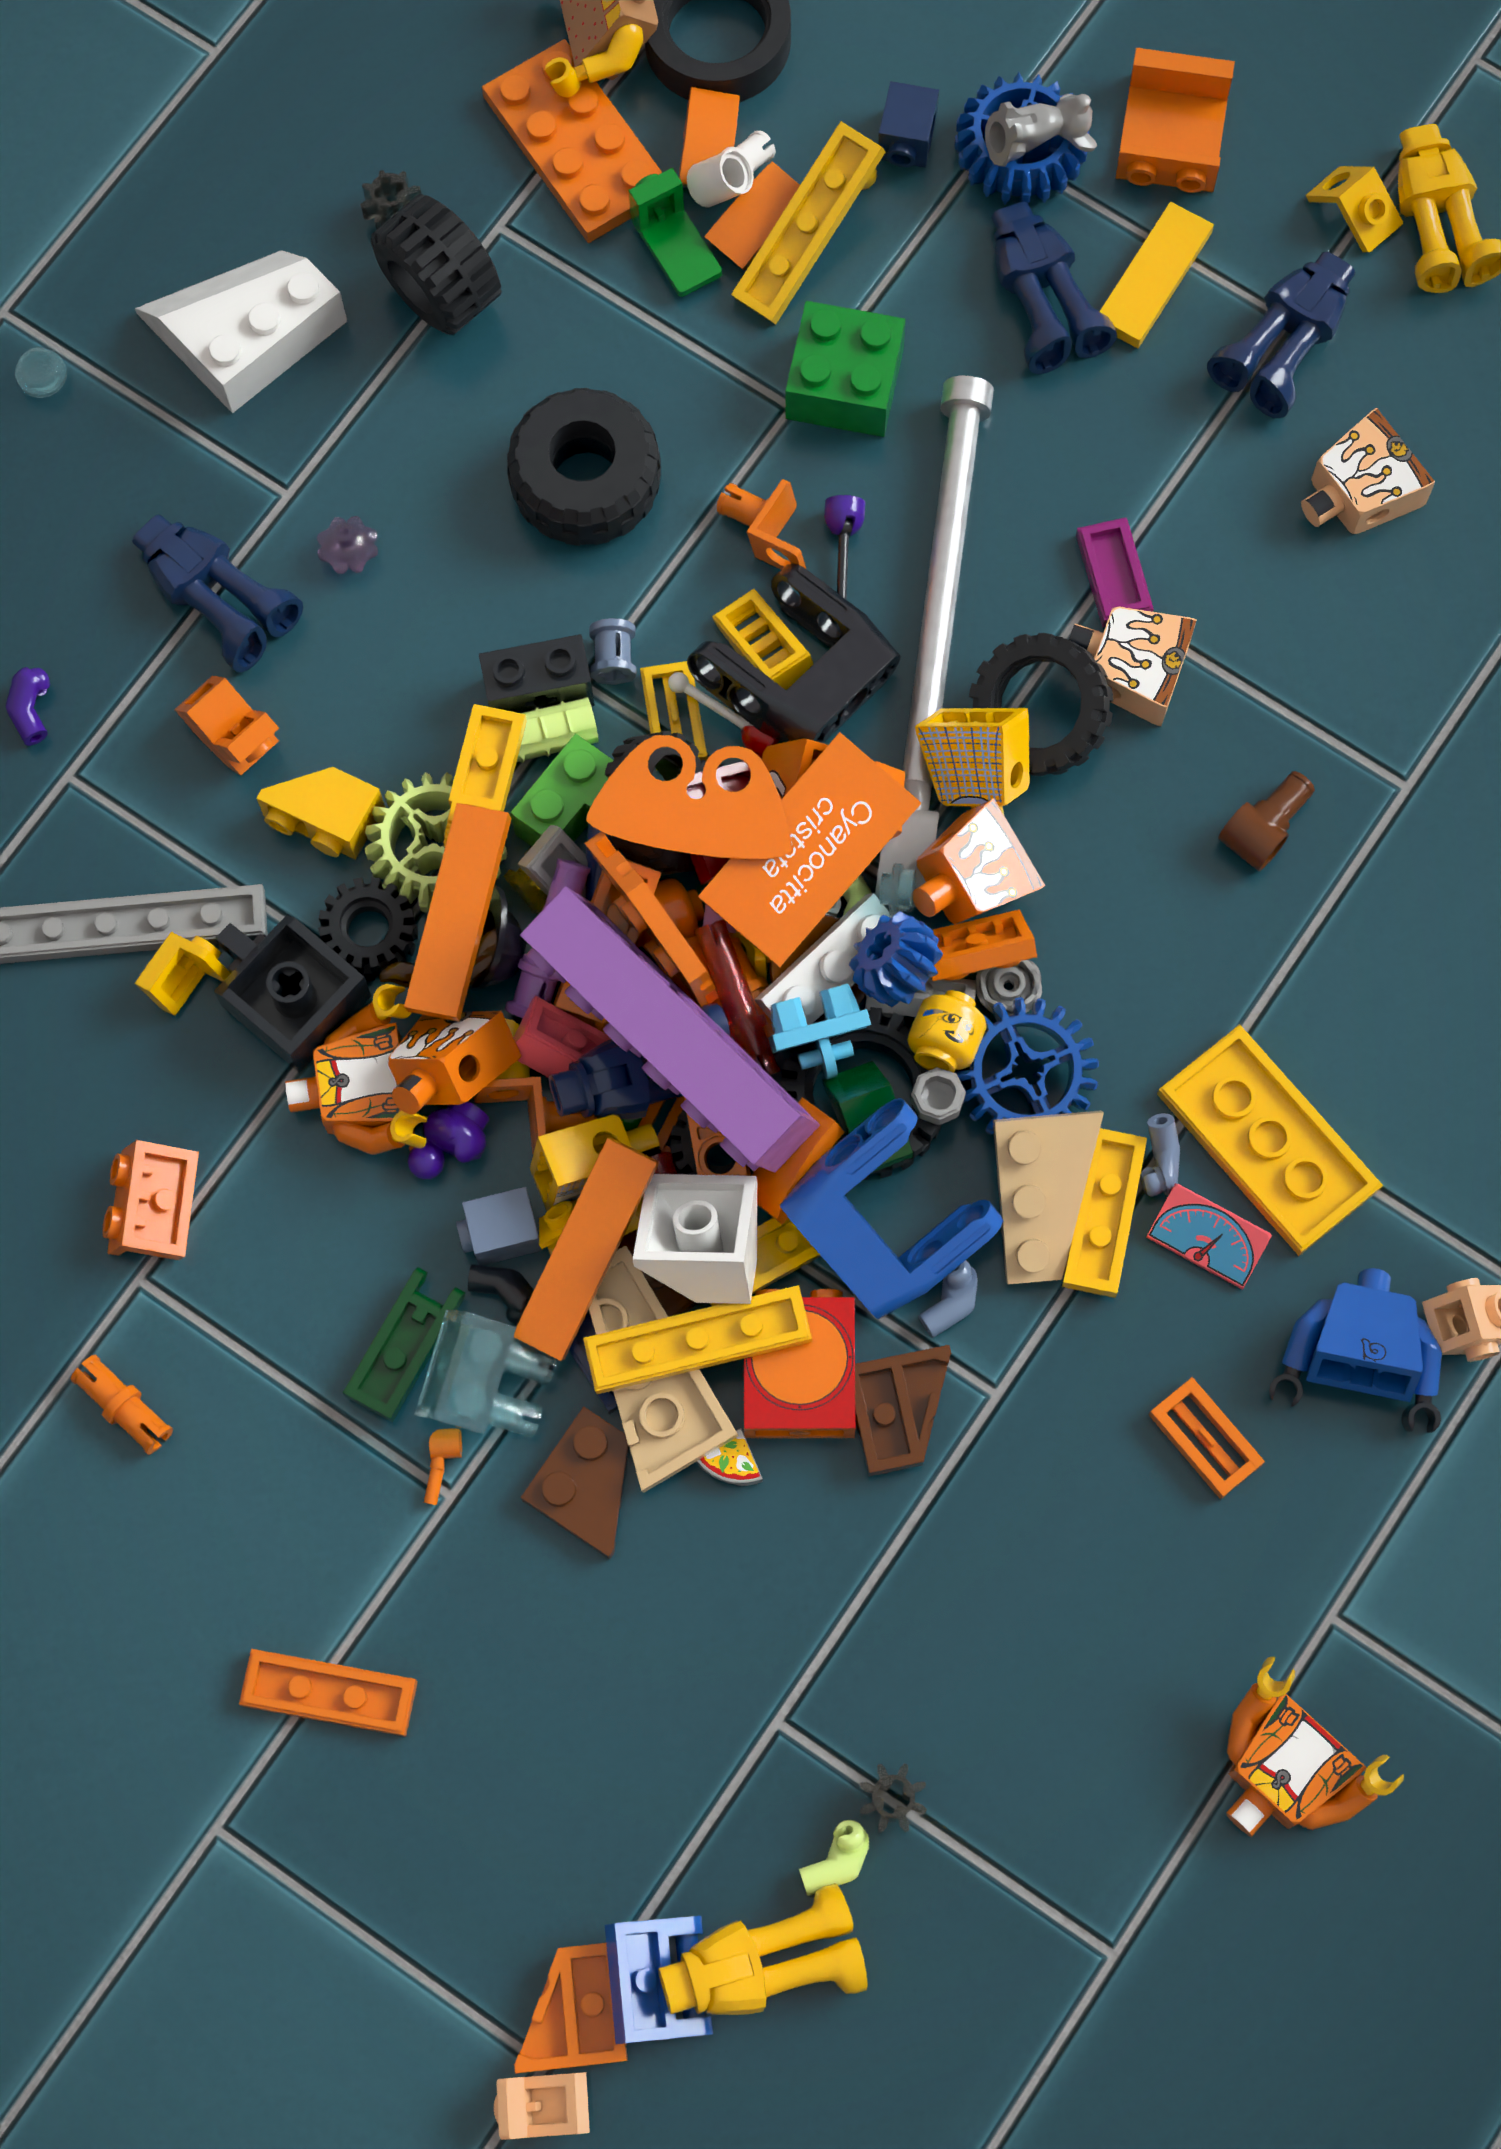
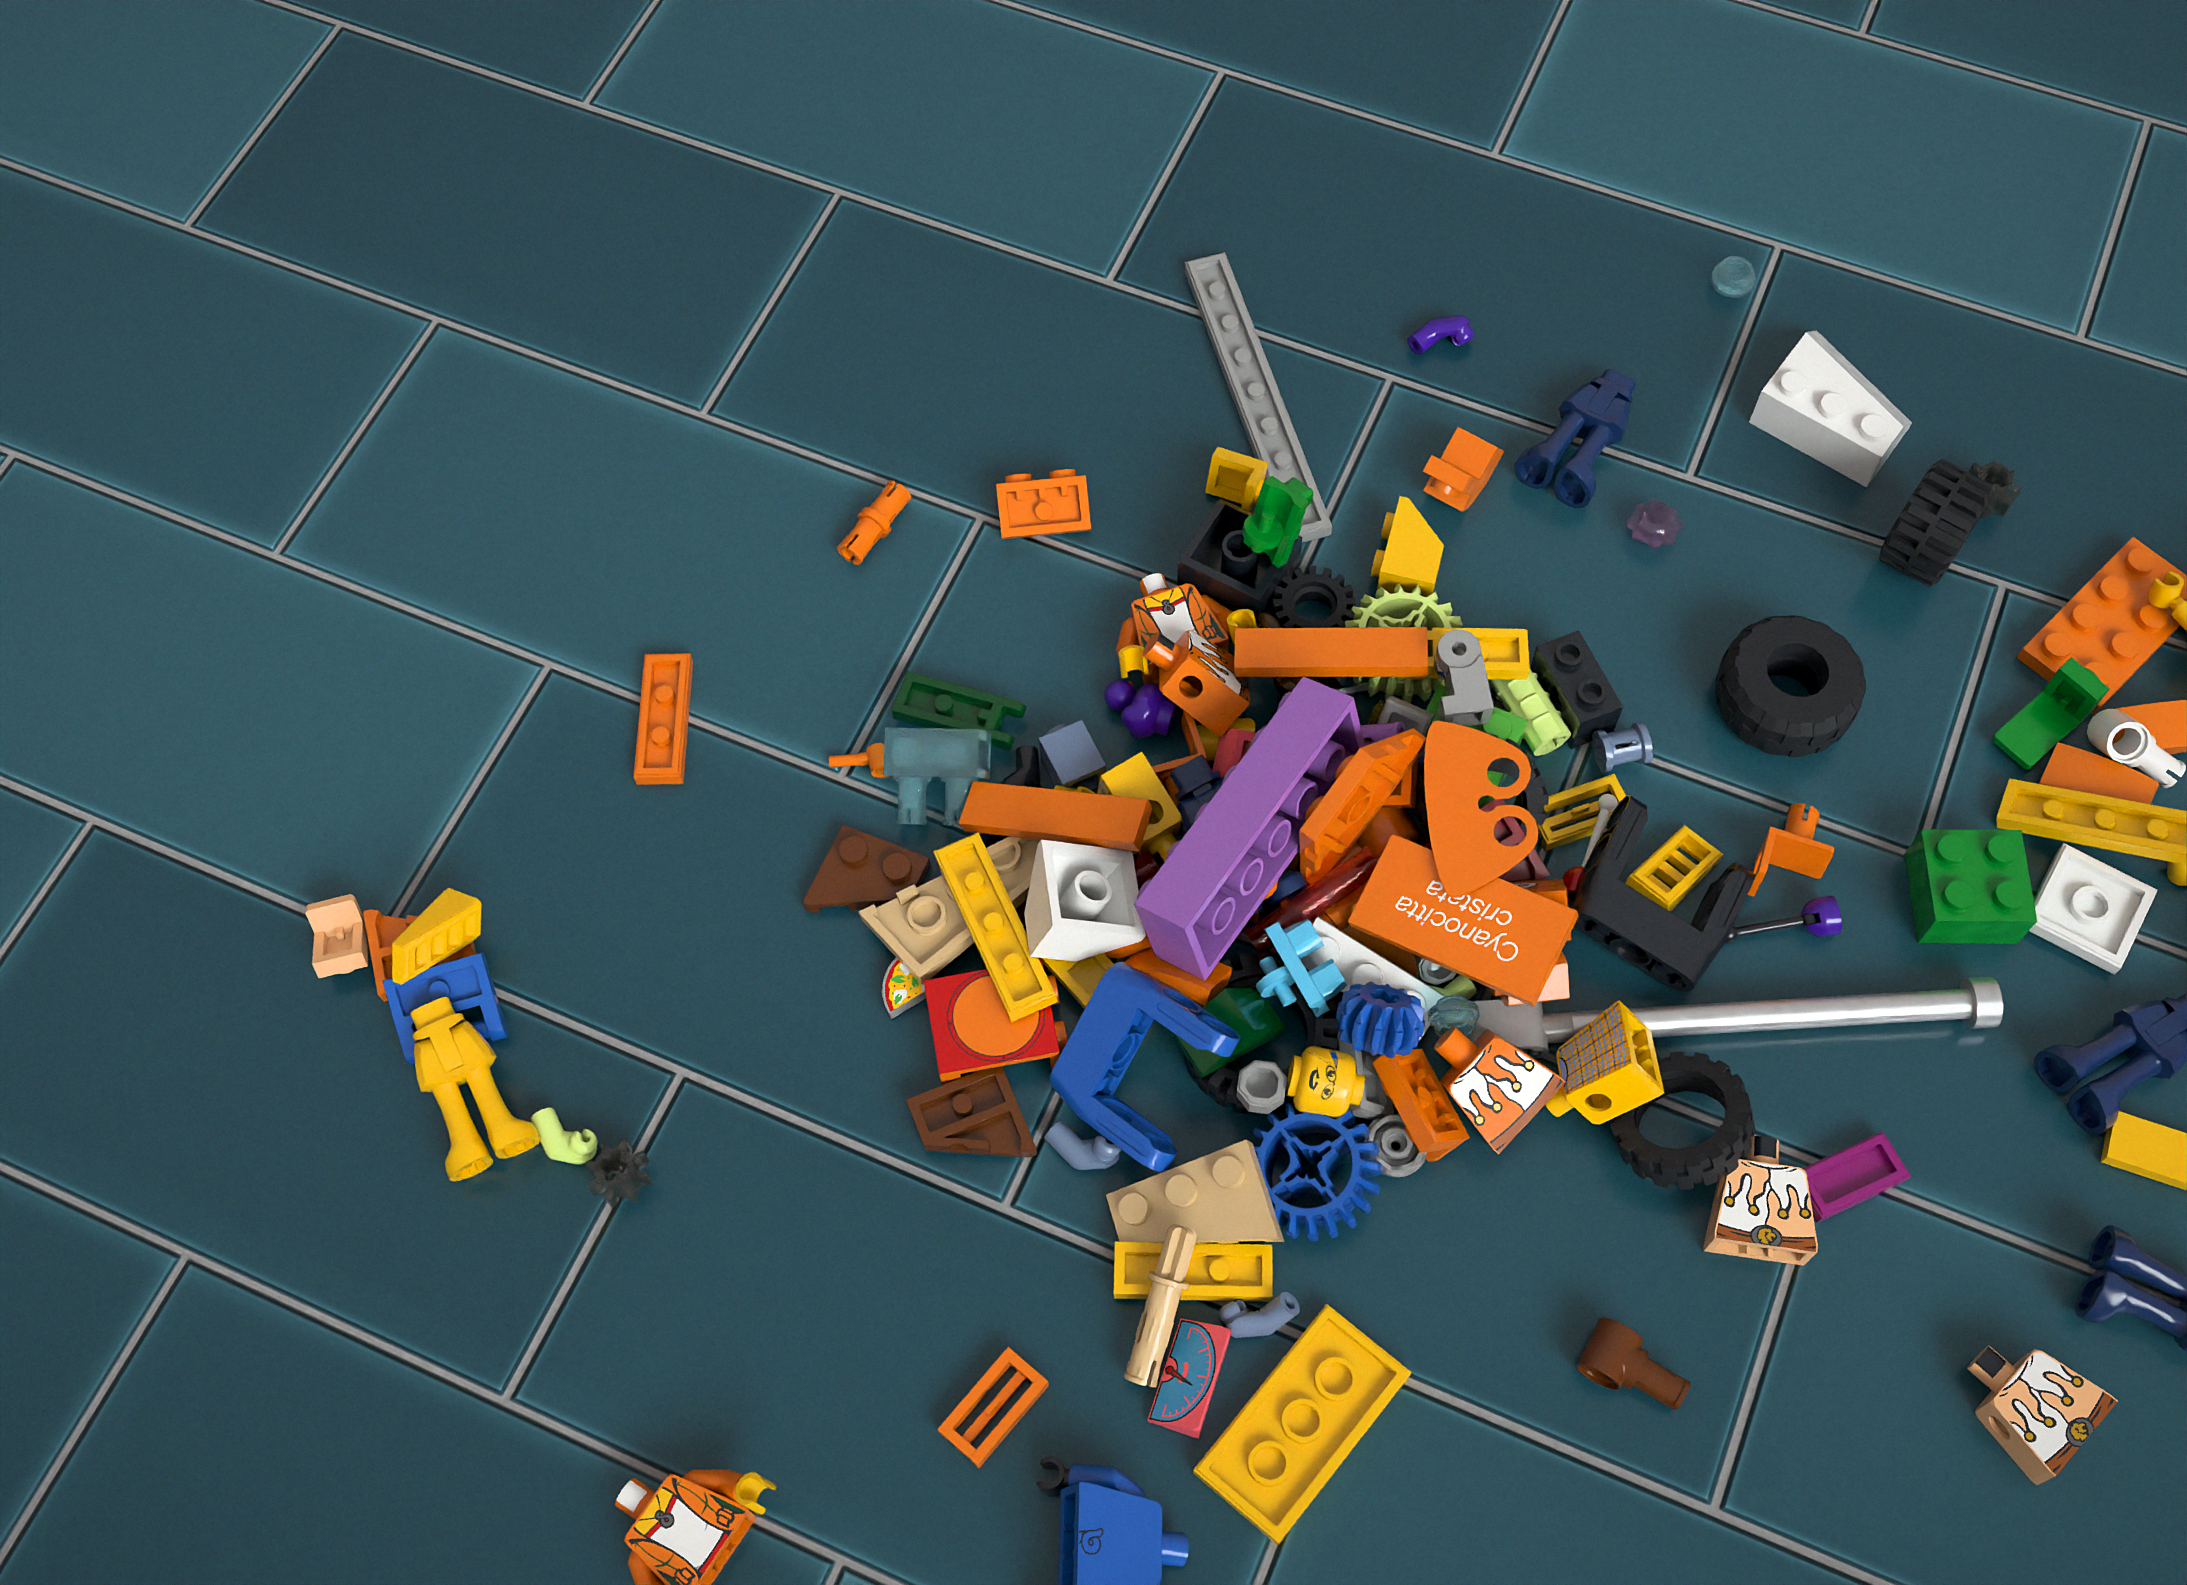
camera: 80 degrees right, 10 degrees down
(286, 926) = (1277, 518): none -> green hips
(529, 780) = (1465, 678): none -> light grey leg
(574, 1961) = (435, 934): none -> yellow slope
(886, 266) = (2090, 908): none -> white plate
(1140, 1245) = (1161, 1306): none -> tan axle

